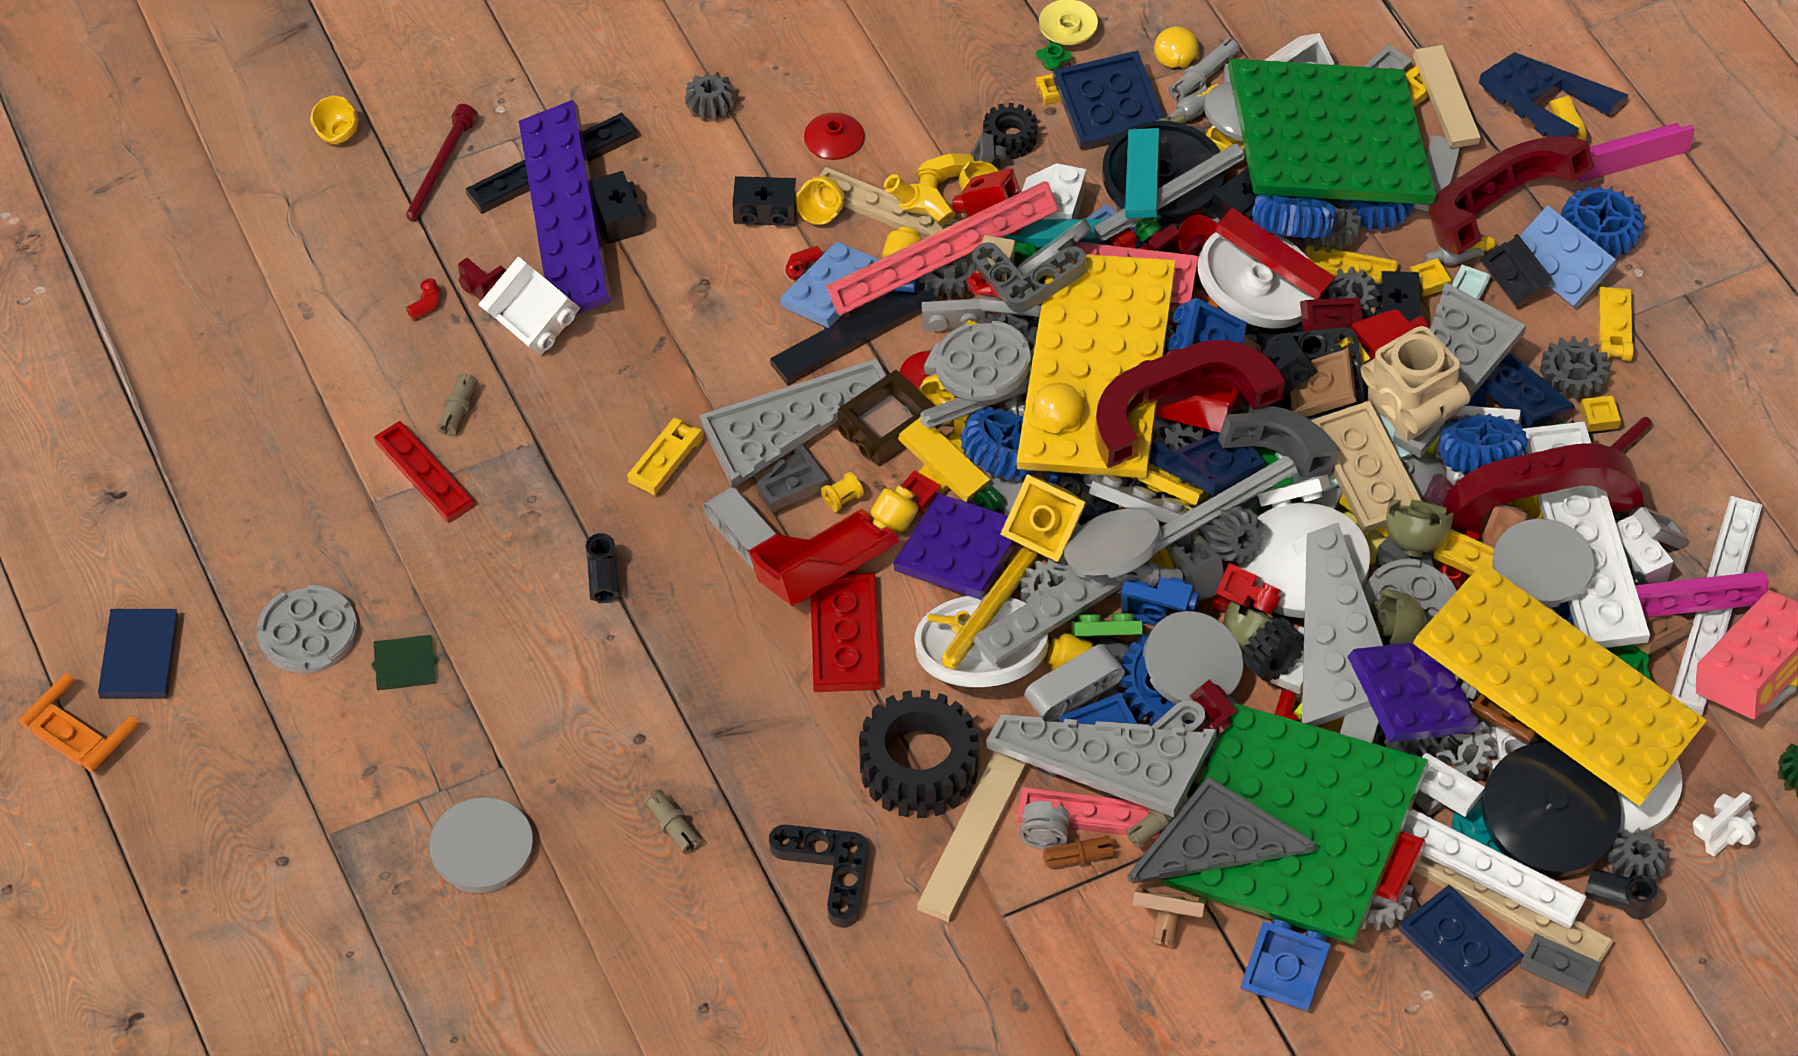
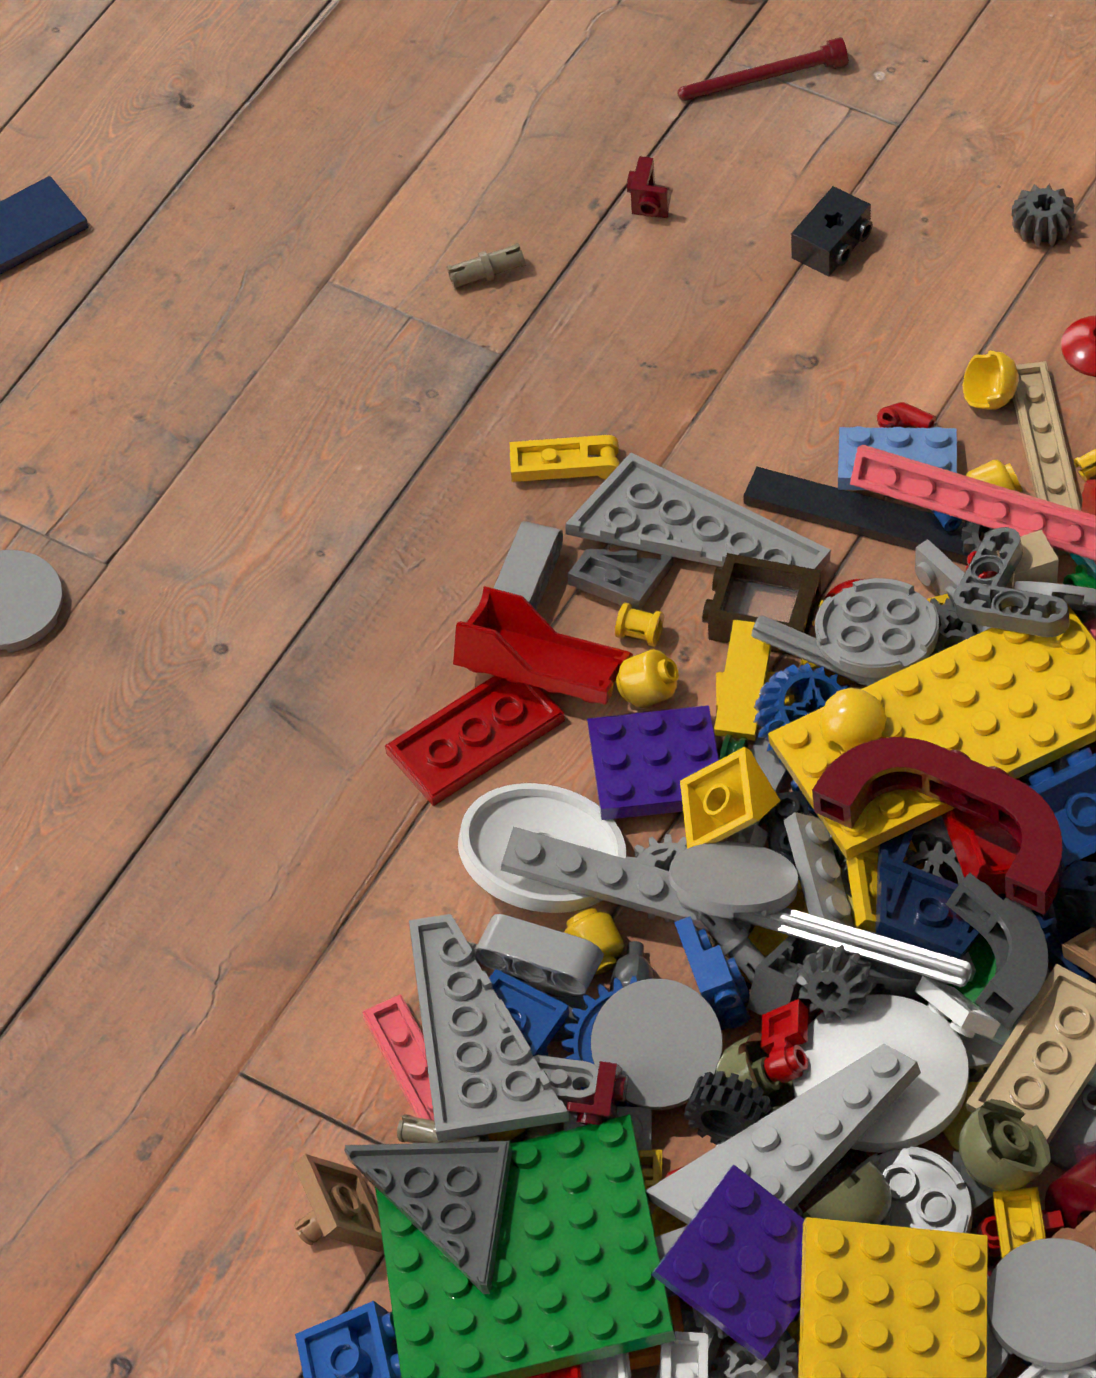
camera: 60 degrees right, 0 degrees up
(307, 629) = (143, 325): light grey tile -> none
(404, 662) = (164, 418): clear green piece -> none
(424, 471) = (391, 294): red tile -> none
(428, 301) = (592, 170): red arm -> none
(514, 180) = (848, 153): black tile -> none
(529, 306) = (643, 240): white panel -> none
(565, 205) = (782, 193): dark purple plate -> none
(602, 568) = (391, 488): black piece -> none
(672, 821) = (137, 729): dark tan pin -> none
(764, 201) = (947, 337): black brick -> none
(836, 855) = (200, 887): black beam -> none
(911, 787) = (366, 919): black tyre -> none
(920, 199) = (1062, 456): yellow arm -> none
(923, 488) = (695, 687): red plate -> none
(950, 620) = (544, 806): yellow hand -> none
(971, 836) = (303, 988): tan tile -> none
(988, 607) = (576, 827): yellow axle -> none
(1044, 825) = (359, 1038): light grey wheel -> none
(1077, 851) = (357, 1090): dark orange axle -> none
(1093, 626) = (645, 944): bright green plate -> none

